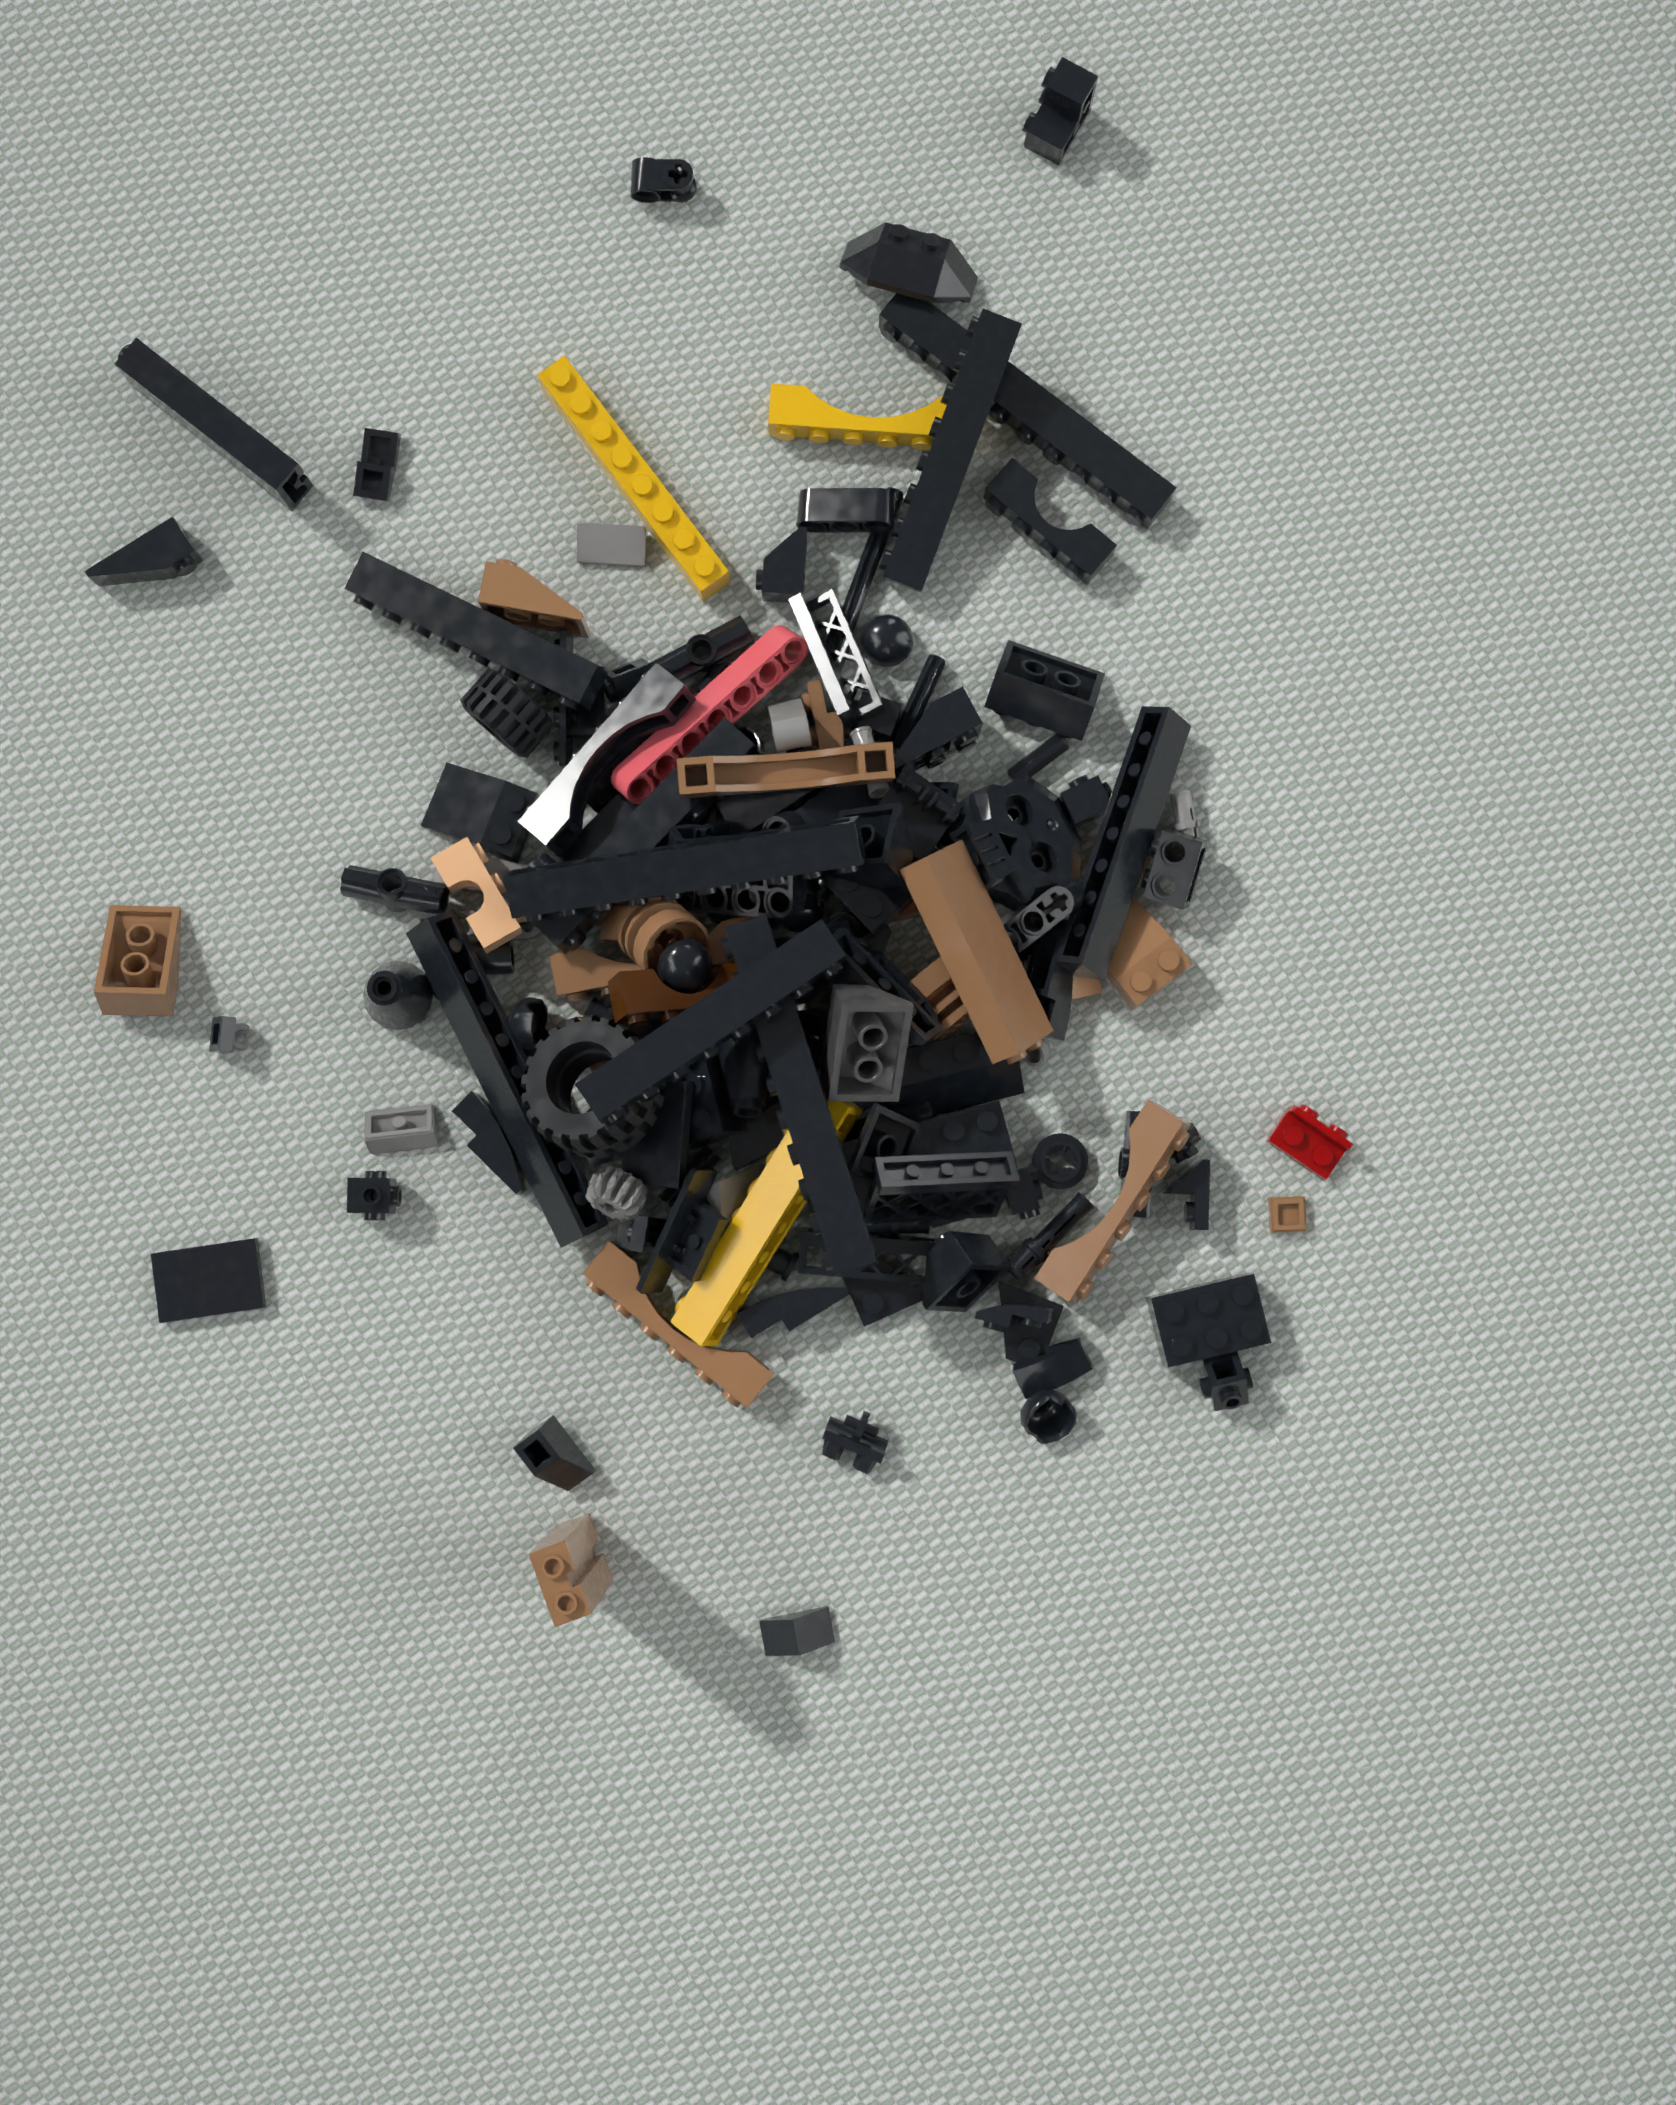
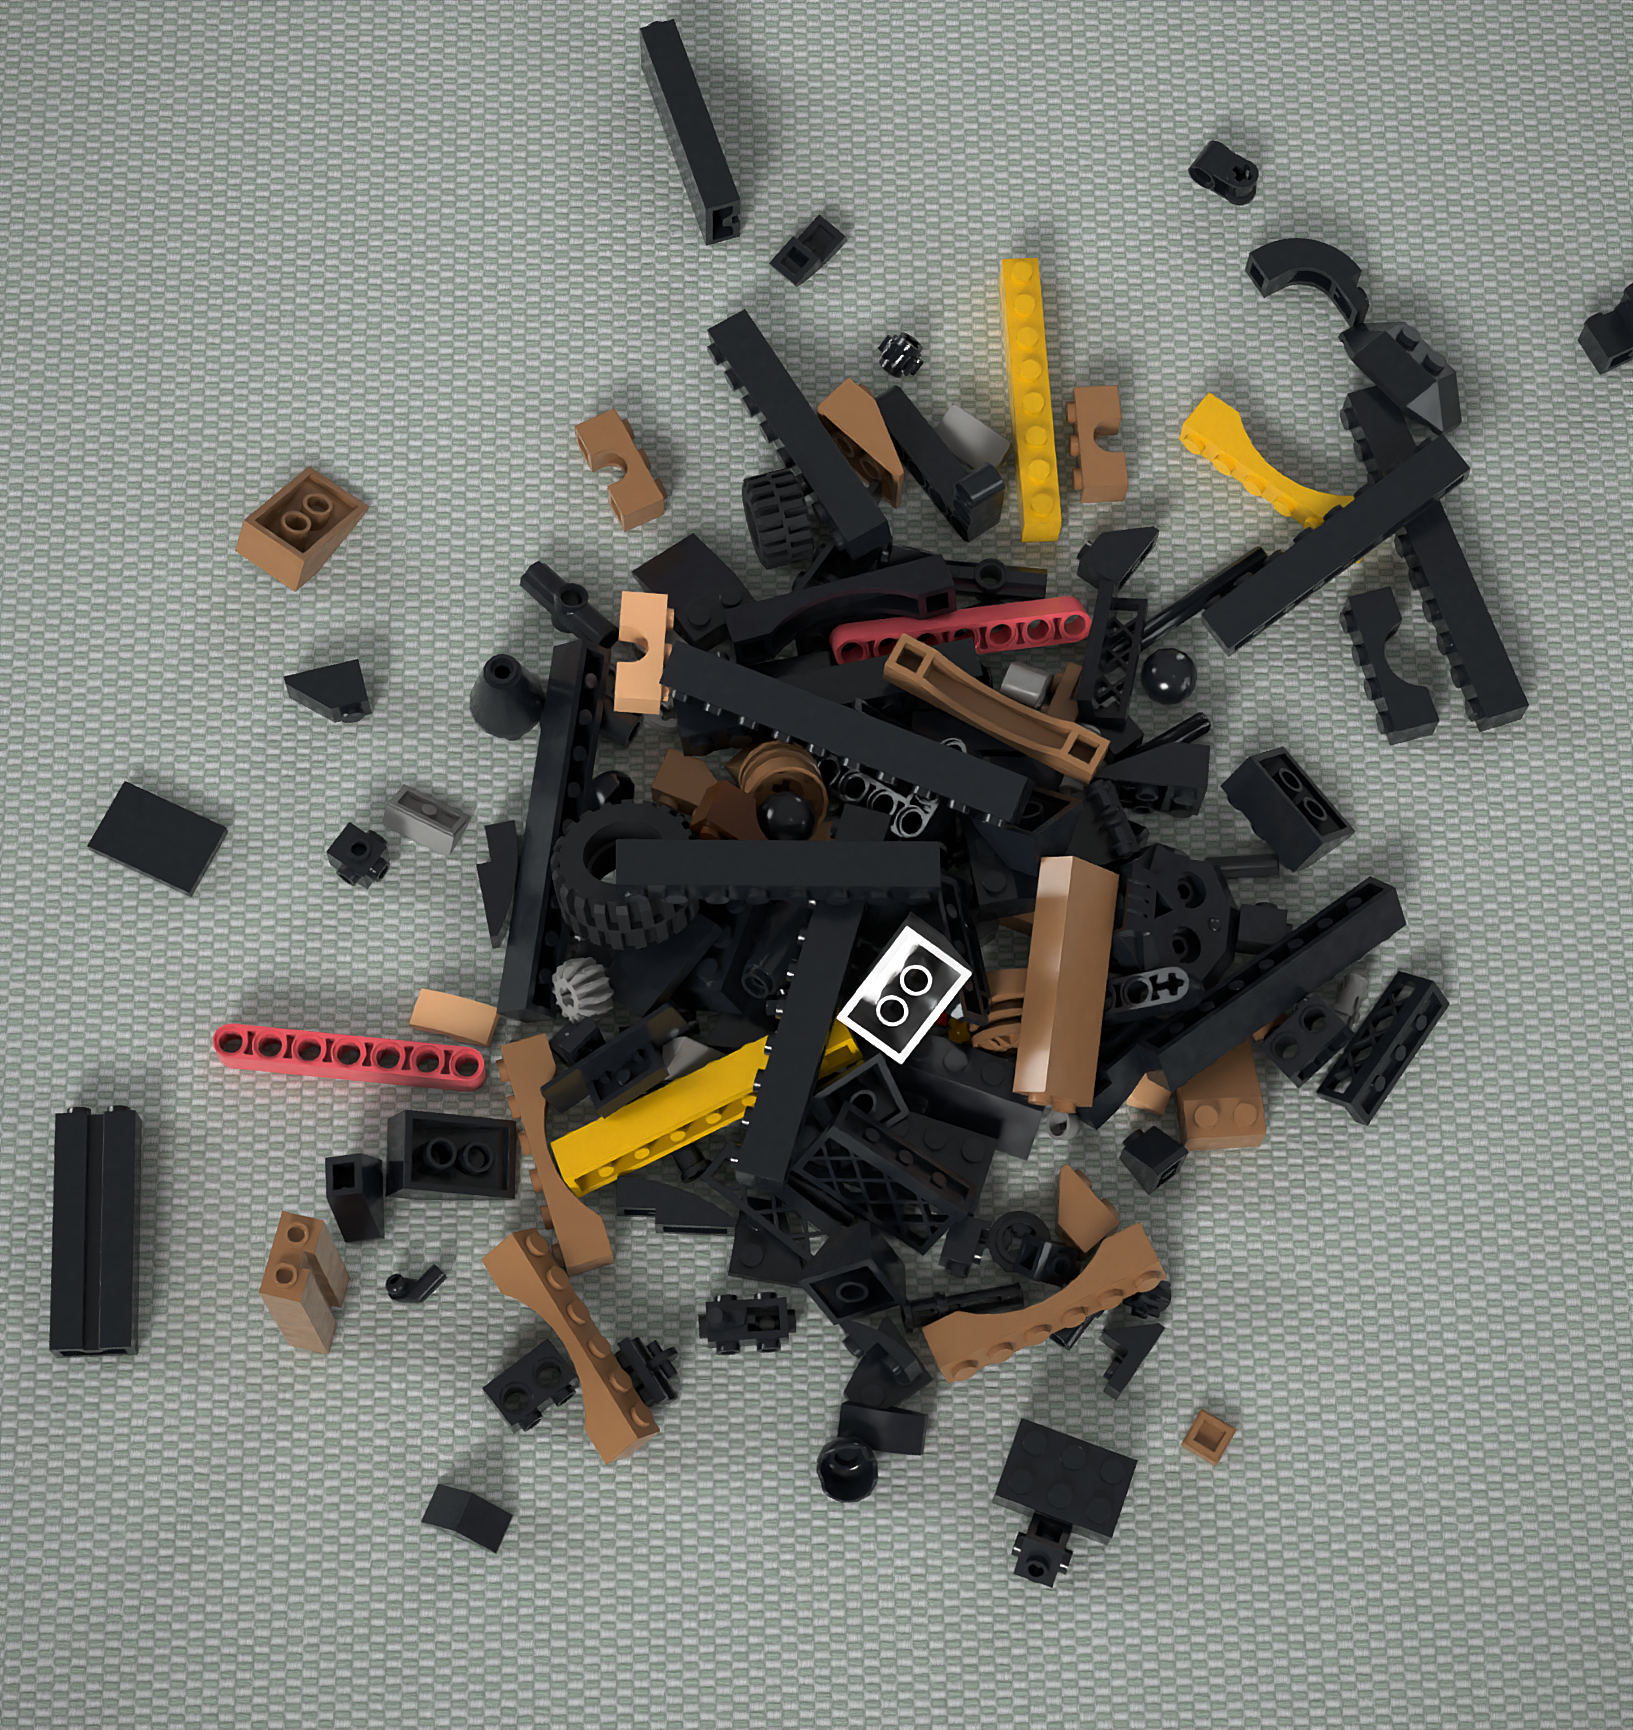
camera: 30 degrees right, 15 degrees down
(154, 556) = (561, 207): black slope -> none
(223, 1035) = (327, 636): tile -> none
(260, 1076) = (332, 691): none -> black slope
(330, 732) = (609, 442): none -> medium nougat arch
(380, 1610) = (95, 1233): none -> black brick
(459, 1361) = (336, 1045): none -> coral beam
(509, 508) = (900, 355): none -> black gear
(531, 1269) = (454, 1016): none -> light nougat slope
(602, 1378) = (450, 1157): none -> black slope
(640, 600) = (966, 500): none -> black beam
(644, 1492) = (414, 1290): none -> black arm
(727, 506) = (1099, 473): none -> medium nougat arch
(727, 1430) = (613, 1410): none -> medium nougat arch
(771, 1506) = (523, 1378): none -> black brick
(783, 216) = (1310, 264): none -> black arch
(846, 510) = (1206, 540): black beam -> none
(893, 1364) = (736, 1323): none -> black brick
(1093, 1113) = (1080, 1215): none -> medium nougat slope
(1100, 1165) = (1053, 1264): none -> black brick
(1118, 1034) = (1152, 1157): none -> black slope
(1238, 830) = (1392, 1046): none -> black fence
(1309, 1140) = (1276, 1380): red bracket -> none

